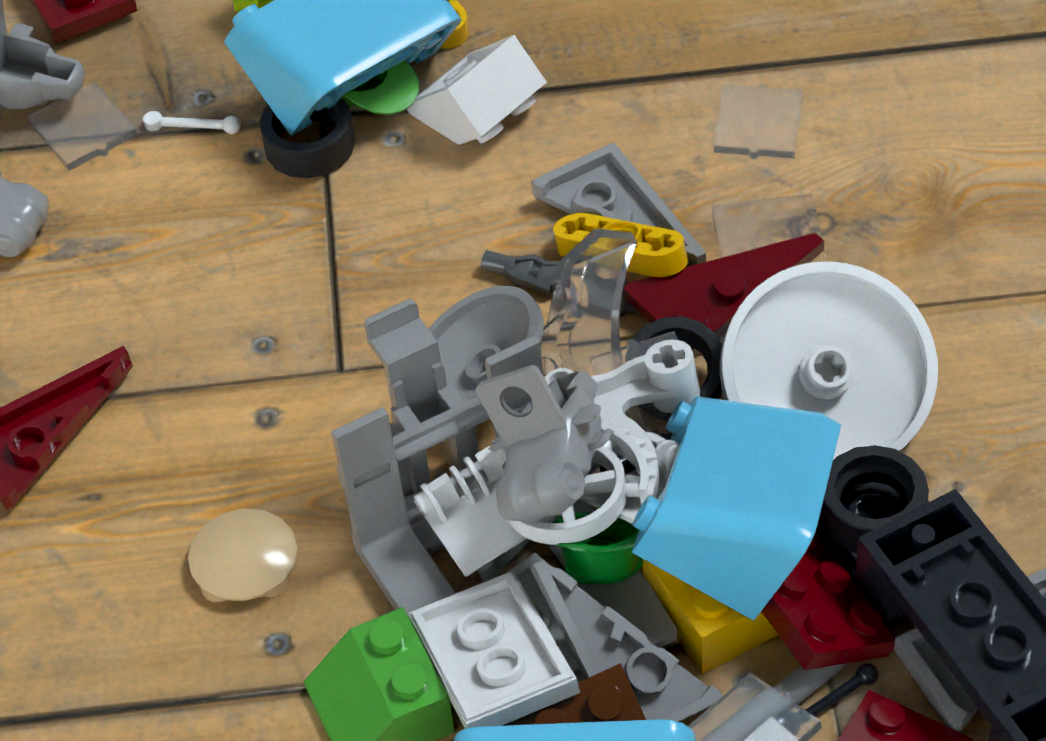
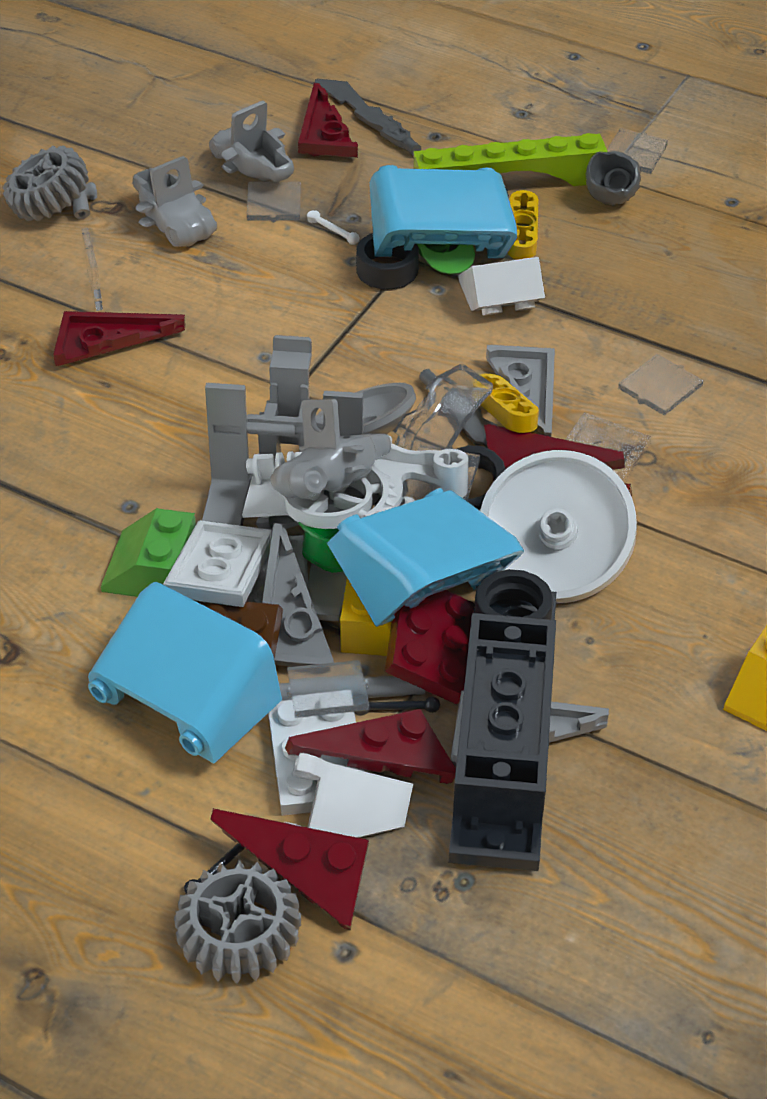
camera: 30 degrees right, 5 degrees down
(243, 556) = (150, 452): tan dish -> none

